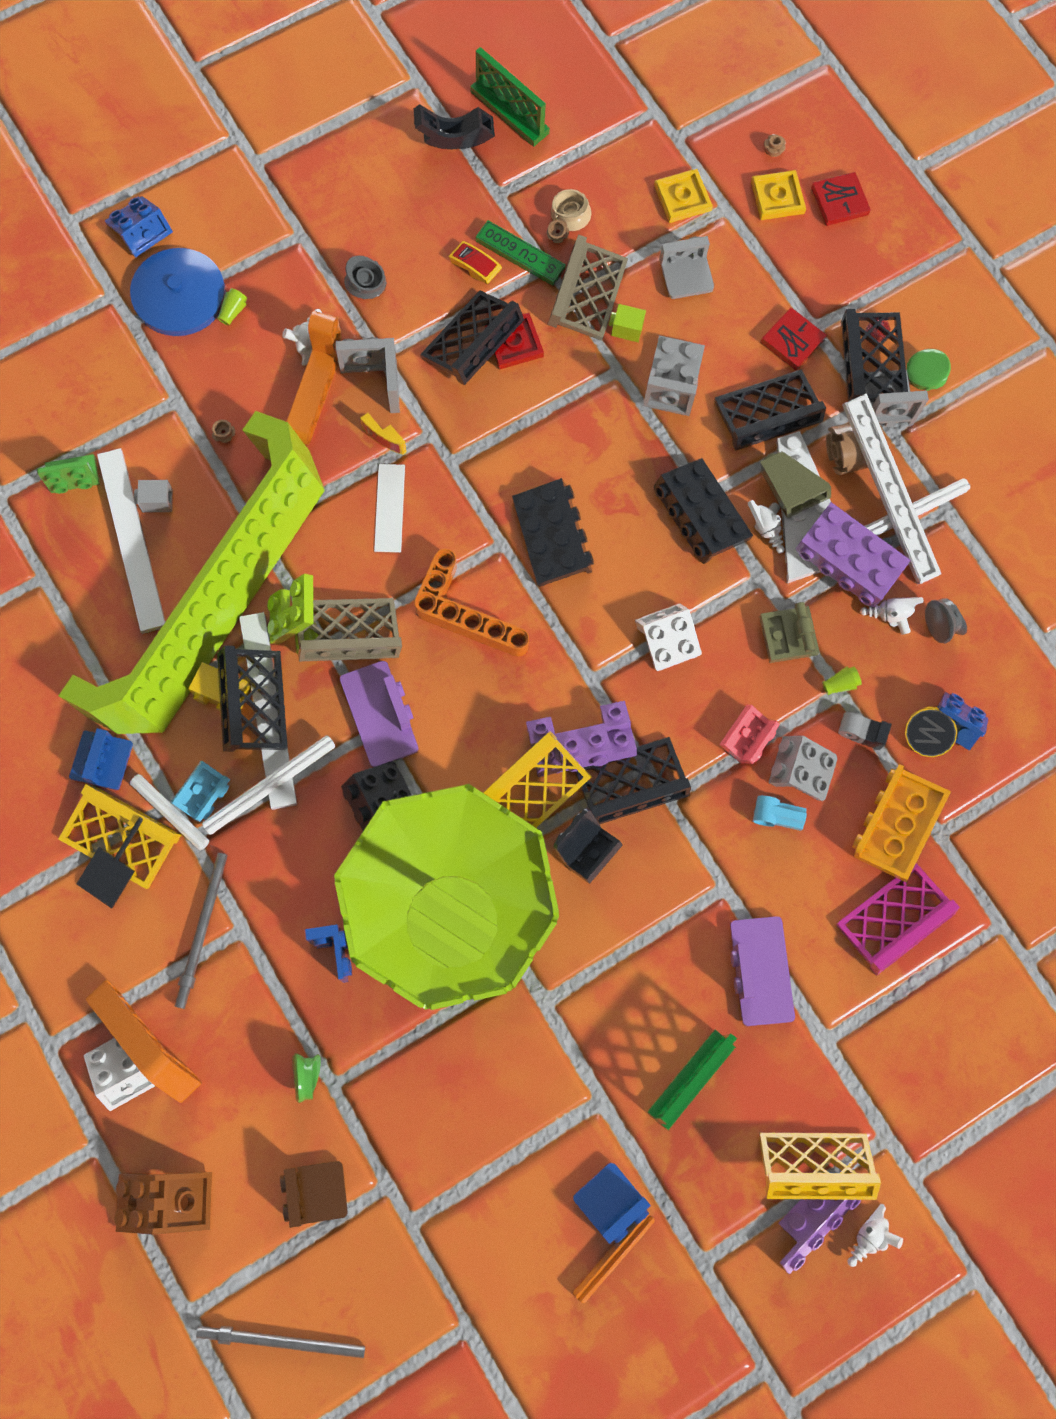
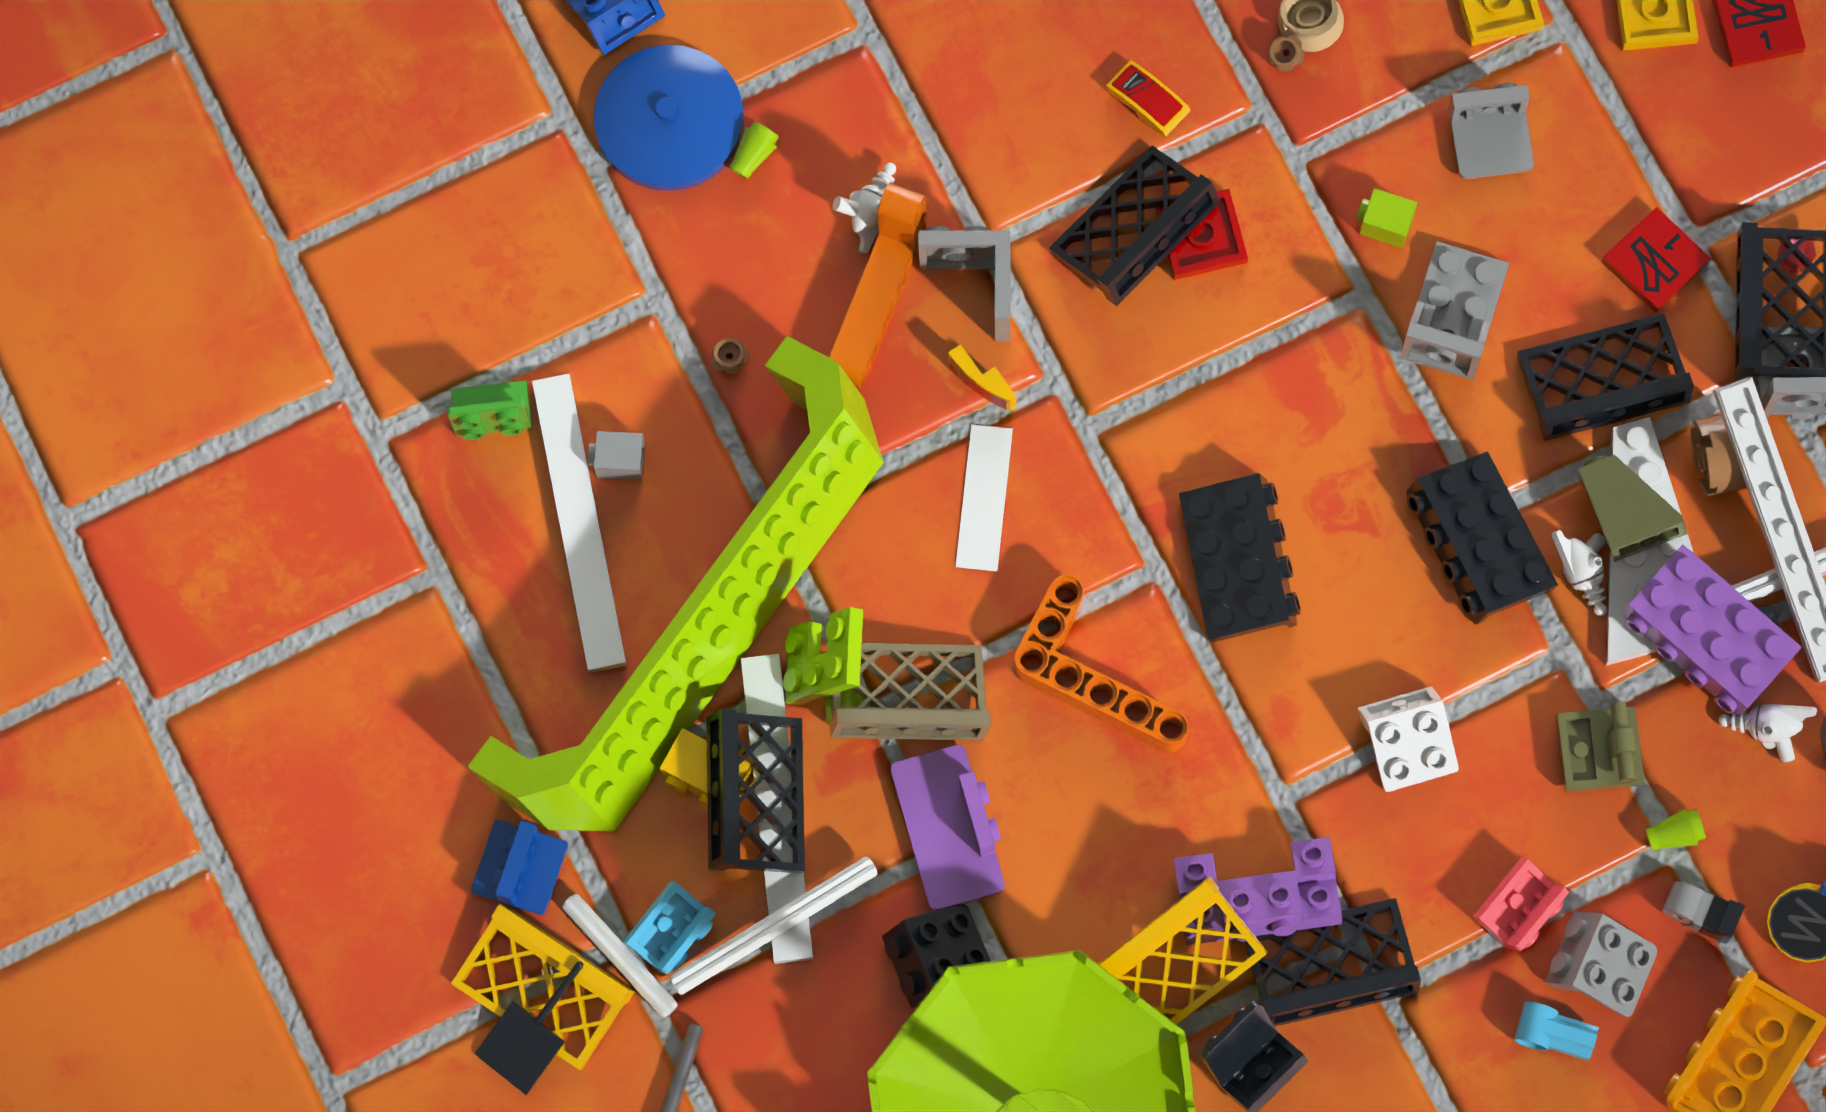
camera: 15 degrees right, 0 degrees up
(364, 277) = (968, 114): dark grey piece -> none
(520, 252) = (1222, 85): green tile -> none
(568, 287) = (1298, 141): dark tan fence -> none

